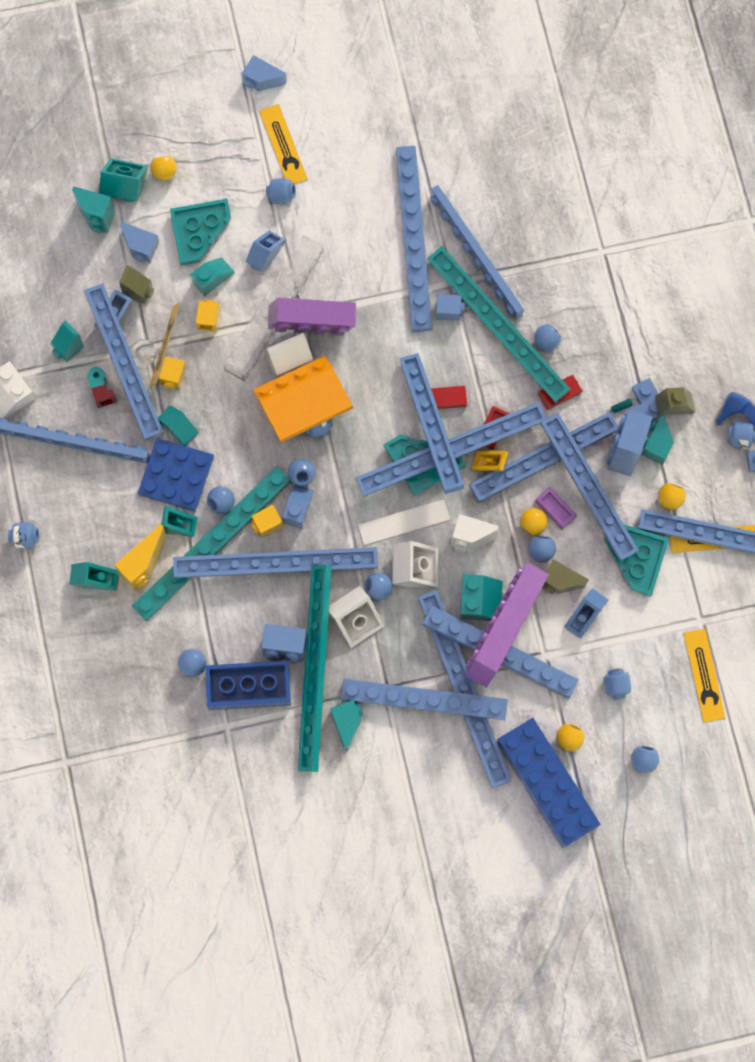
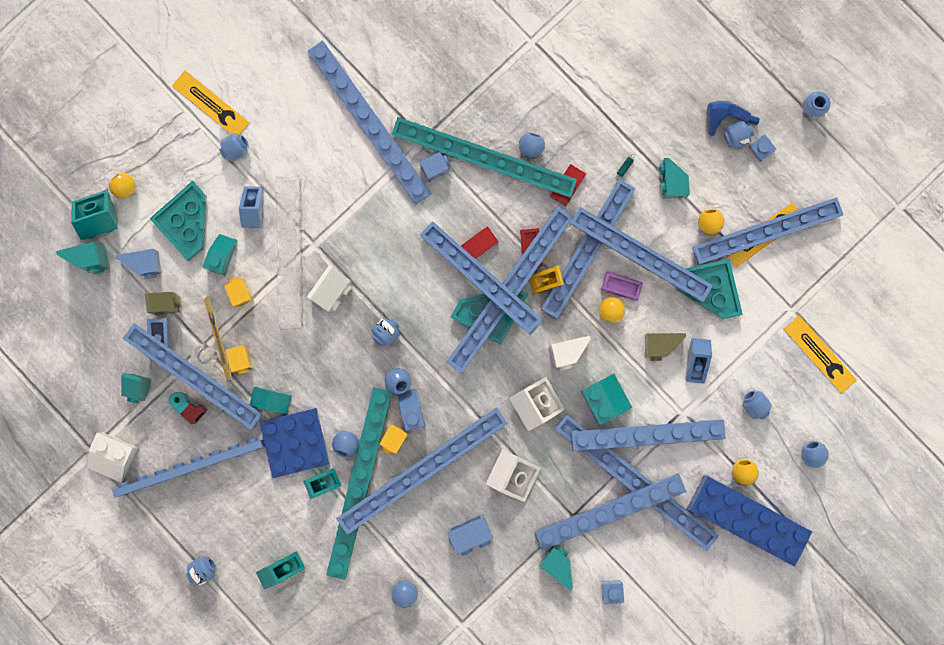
camera: 25 degrees left, 10 degrees up
(140, 562) = (312, 537): yellow slope -> none
(248, 685) = (461, 586): blue brick -> none
(262, 75) = (155, 53): medium blue slope -> none
(302, 399) = (362, 319): light orange slope -> none
(311, 315) = (322, 247): medium lavender brick -> none
(314, 668) = (507, 539): teal plate -> none
(378, 586) = (517, 440): medium blue piece -> none
(382, 773) = (612, 592): none -> medium blue brick
(404, 522) = (505, 370): white sticker -> none
(479, 259) = (435, 108): medium blue plate -> none
(505, 624) = (644, 414): medium lavender brick -> none
(542, 548) = (631, 328): medium blue piece -> none
(628, 442) = (656, 200): medium blue brick -> none
(645, 394) = (648, 152): medium blue plate -> none
(674, 401) = (668, 139): olive slope -> none

